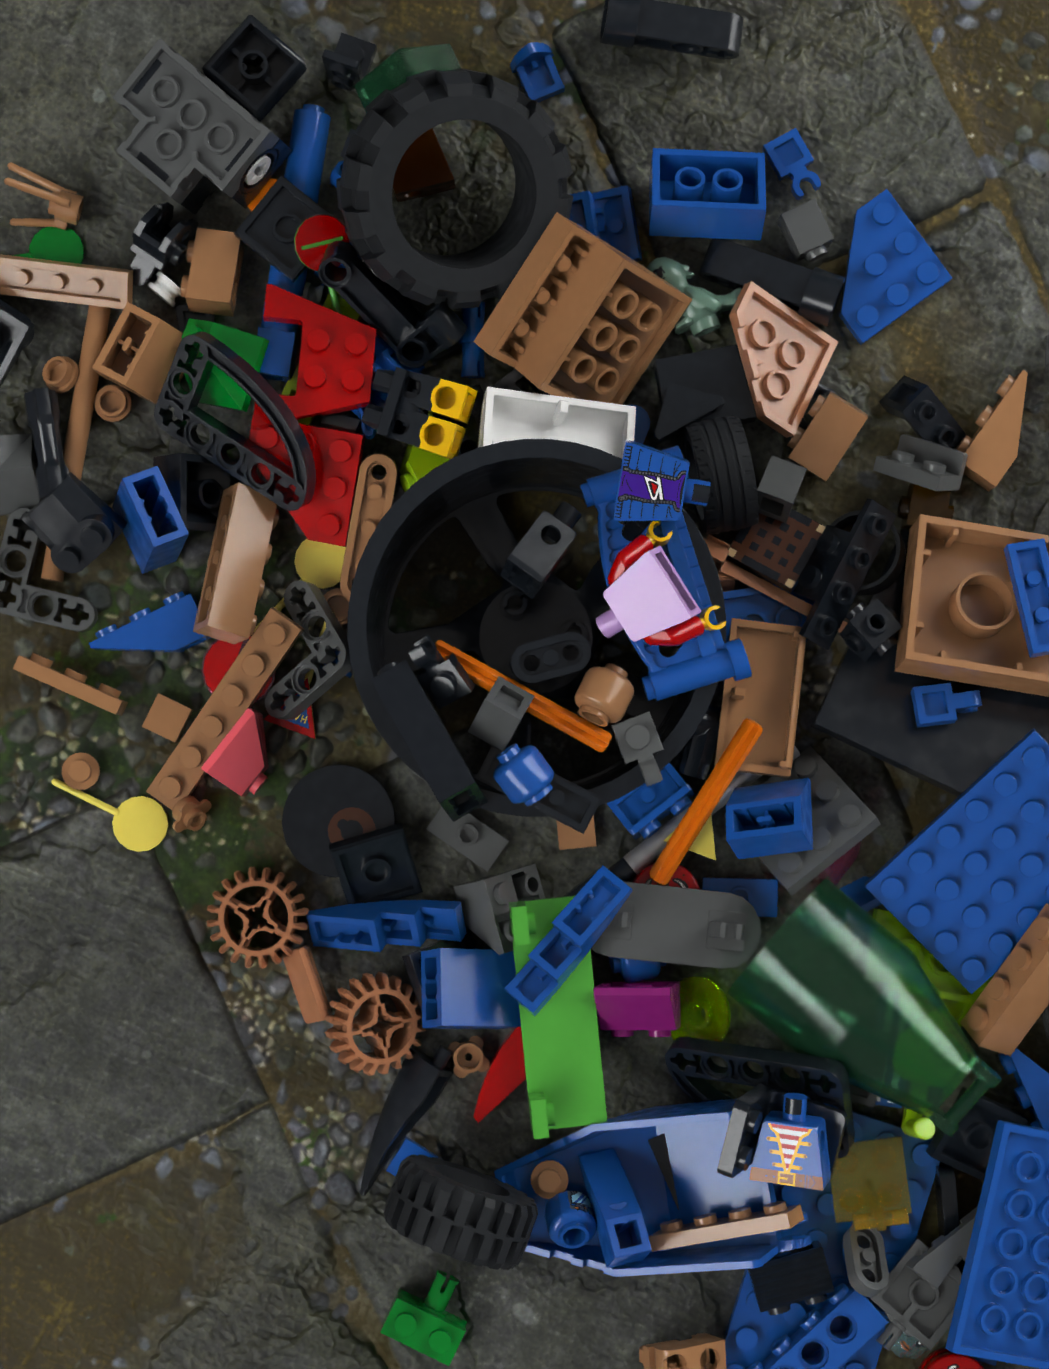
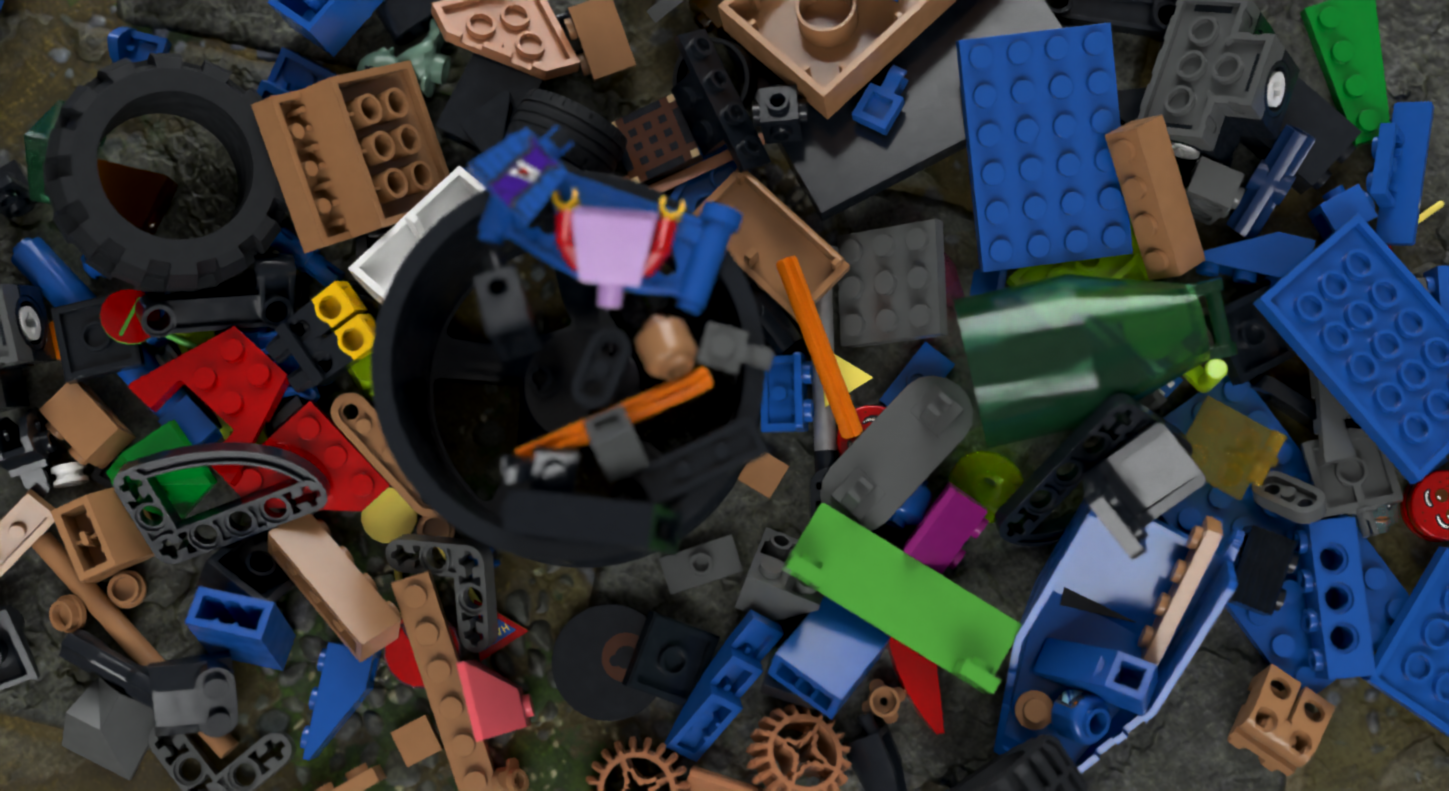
camera: 50 degrees left, 5 degrees down
(523, 774) = (680, 462): blue head -> none
(569, 940) = (849, 541): blue slope -> none
(770, 819) = (873, 305): blue slope -> none
(779, 488) = (614, 103): dark grey brick -> none
(792, 1147) = (1156, 484): torso -> none

